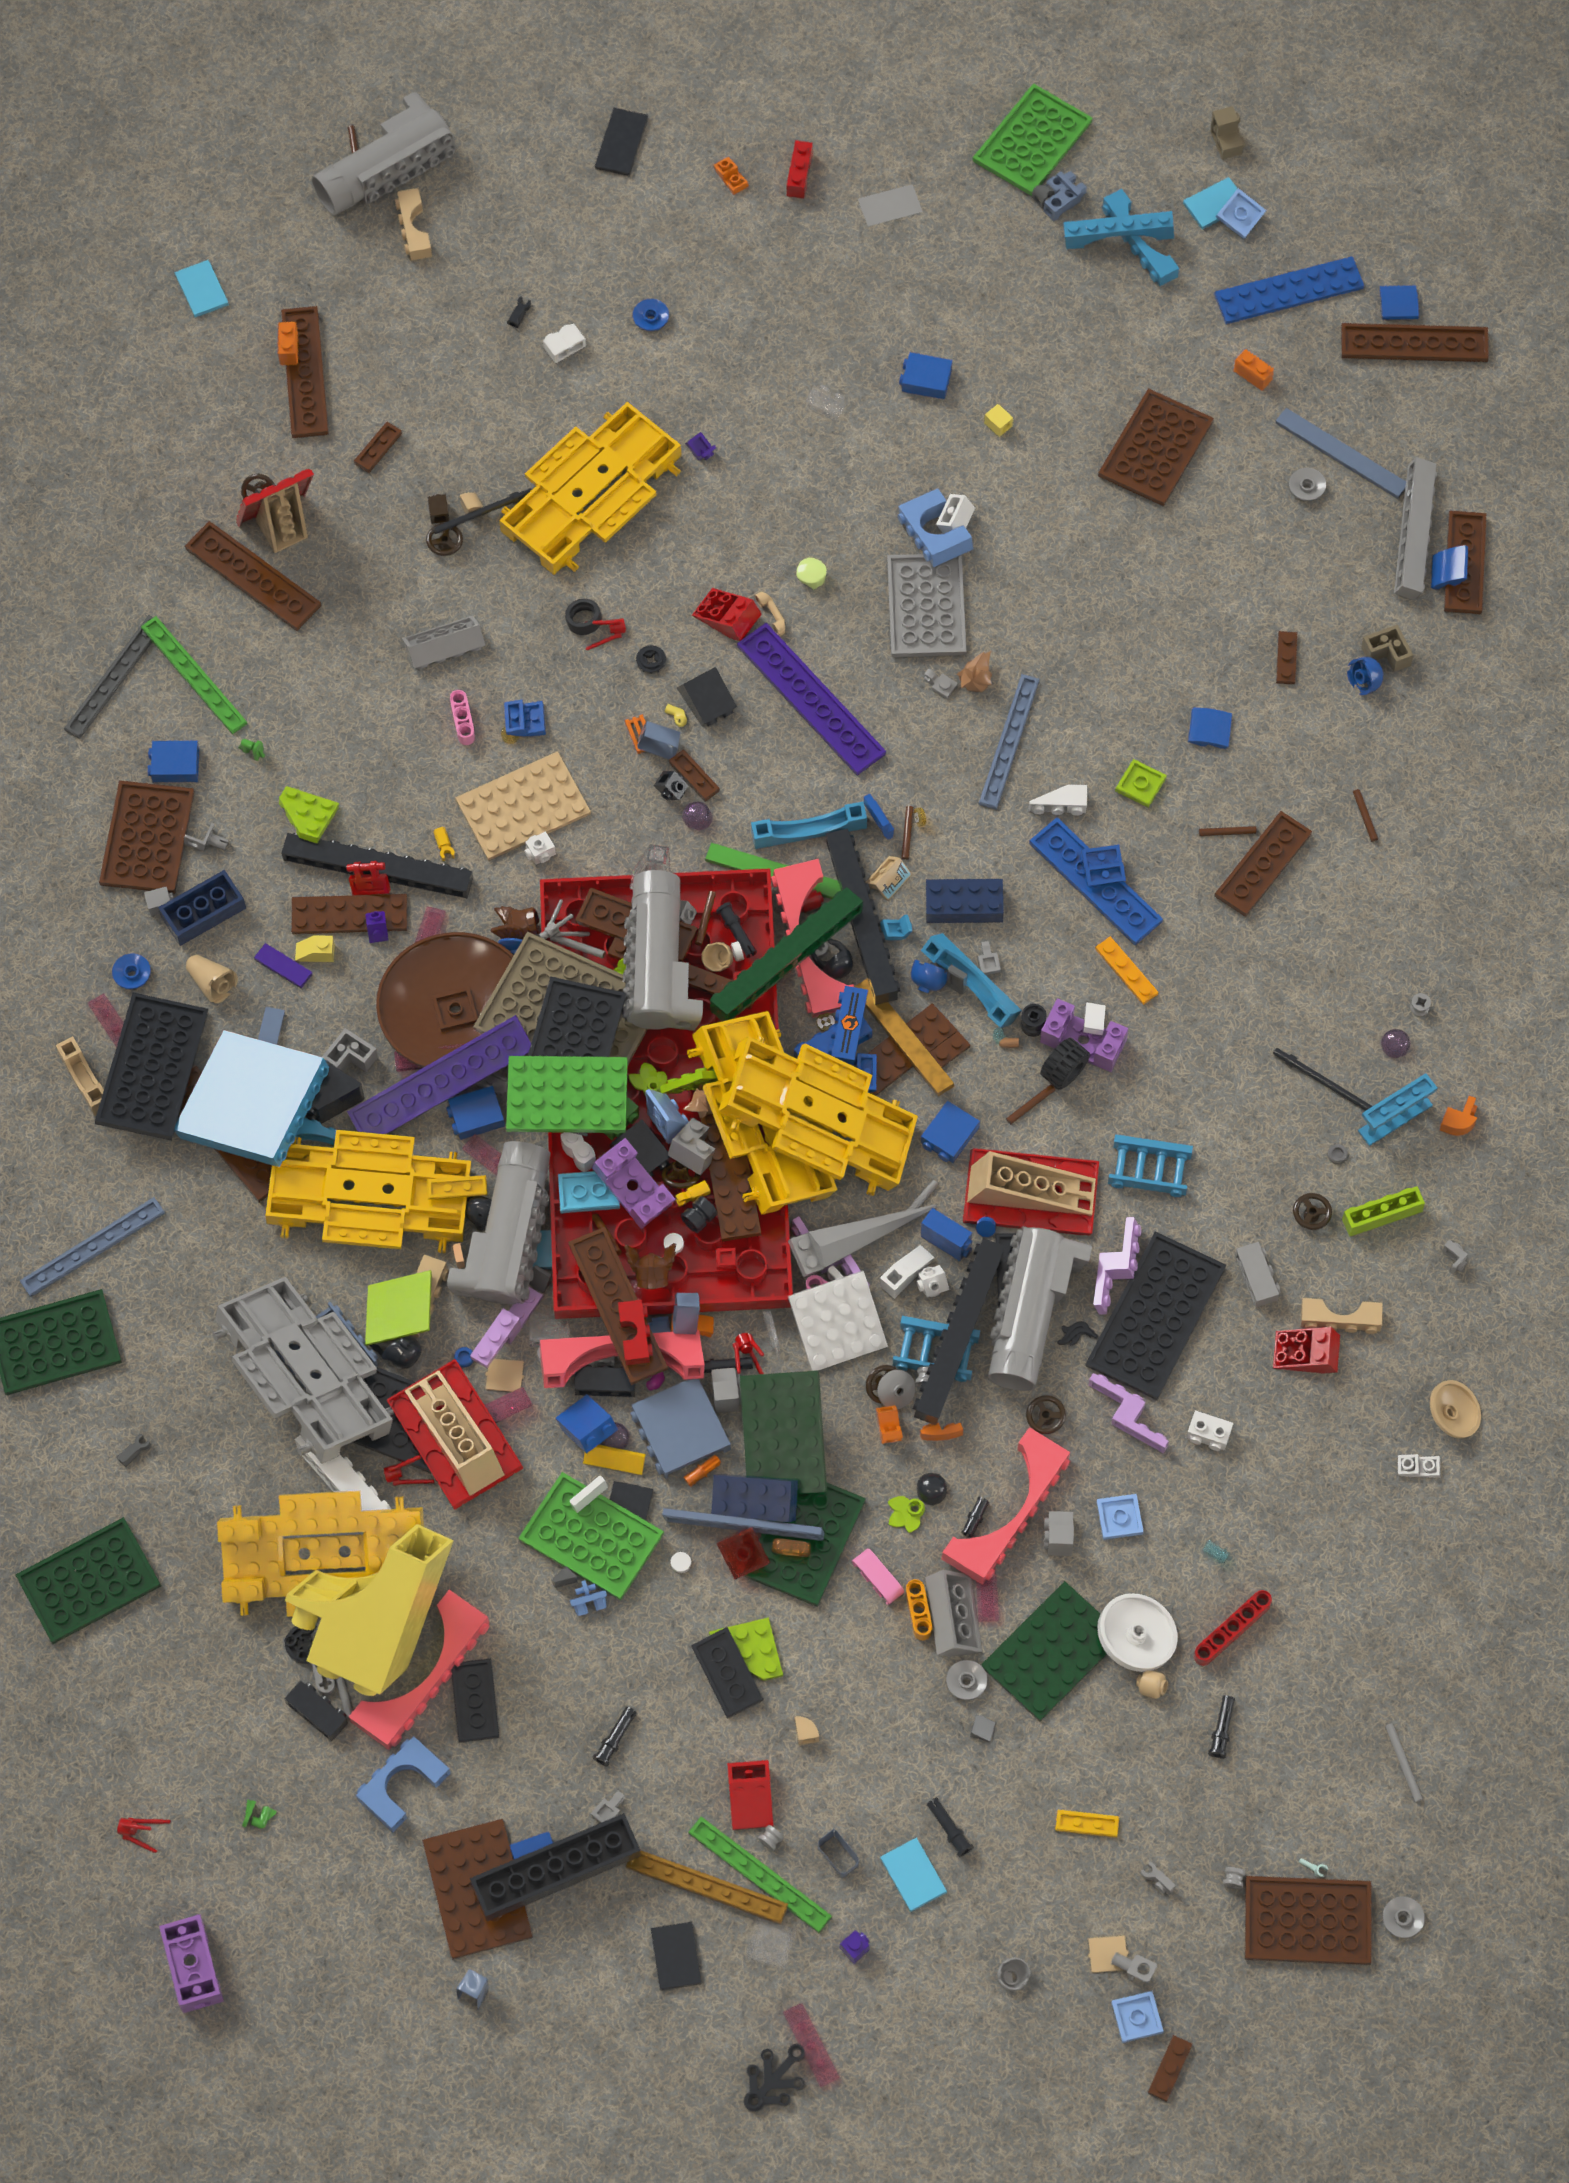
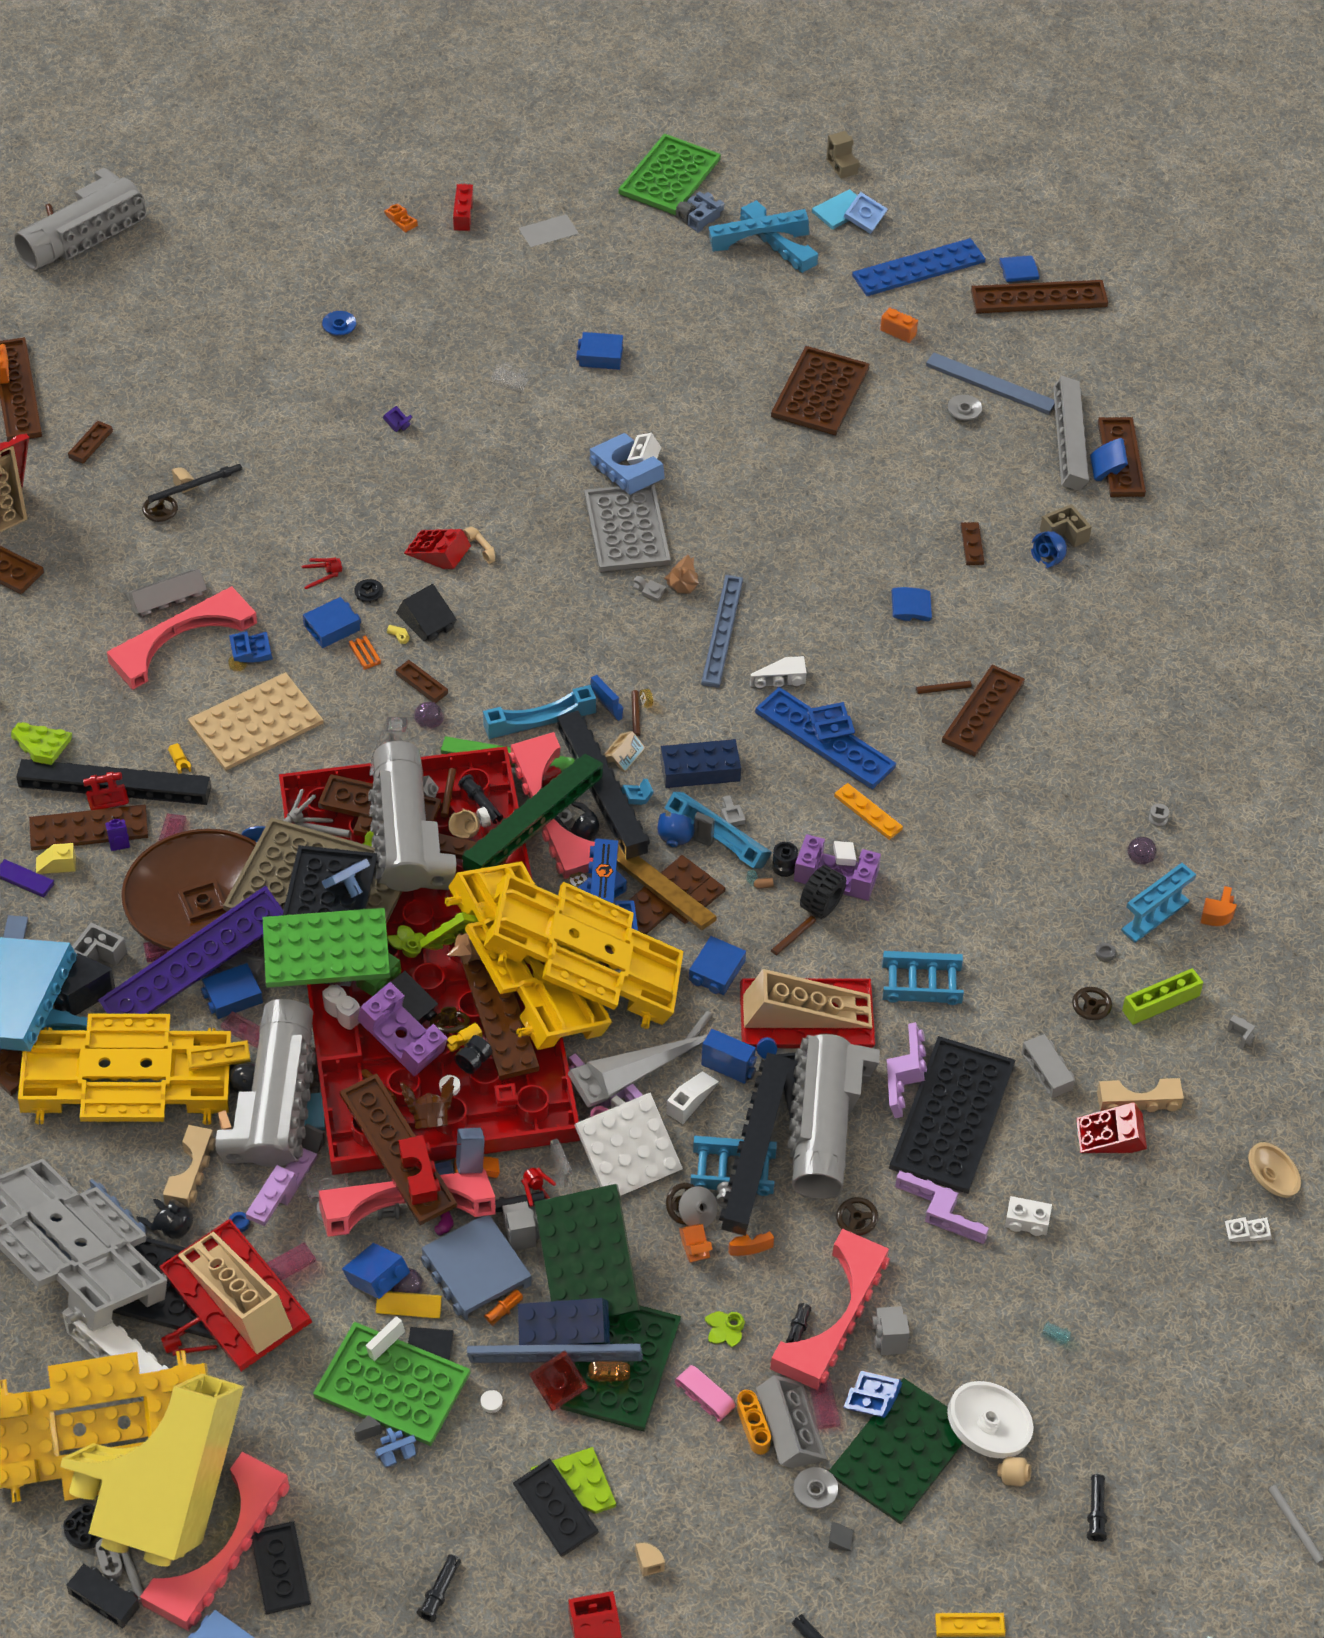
camera: 10 degrees left, 15 degrees down
(398, 1308) = (165, 1177): lime piece -> none
(410, 206) = (116, 283): tan arch -> none
(438, 509) = (151, 483): dark brown brick -> none
(462, 710) = (189, 651): bright pink beam -> none
(499, 670) = (223, 609): none -> coral arch
(504, 1375) = (283, 1235): tan piece -> none
(516, 922) = (257, 814): reddish brown helmet -> none
(518, 313) = (215, 331): black bar -> none
(539, 848) = (276, 753): white brick -> none
(548, 514) = (264, 481): yellow piece -> none
(564, 343) = (260, 349): white brick -> none
(583, 605) = (297, 551): black tyre -> none
(584, 1193) = (353, 1047): medium azure tile -> none
(593, 1020) = (347, 876): none -> medium blue tile
(603, 1382) = (390, 1230): black brick -> none
(609, 696) = (331, 622): none -> blue brick
(621, 141) = (298, 200): black tile -> none
(658, 740) = (384, 659): sand blue piece -> none
(665, 1114) = (428, 966): light blue slope -> none
(671, 785) = (400, 689): black brick -> none
(690, 1147) = (459, 992): light grey brick -> none
(811, 572) = (515, 508): yellowish green hair -> none
(811, 699) = (528, 610): dark purple plate -> none
(931, 1488) = (749, 1301): black hair -> none
(932, 1281) = (720, 1102): white brick -> none
(998, 420) = (672, 379): light yellow panel -> none
(1033, 1595) = (873, 1394): none -> slope
(1074, 1332) = (873, 1137): black piece -> none
(1119, 1516) = (950, 1308): light blue plate -> none
(1141, 783) = (854, 653): lime plate -> none
(1236, 1619) = (1090, 1397): red beam -> none
(1292, 1061) = (1044, 875): black bar -> none
(1365, 815) = (1072, 664): reddish brown bar -> none

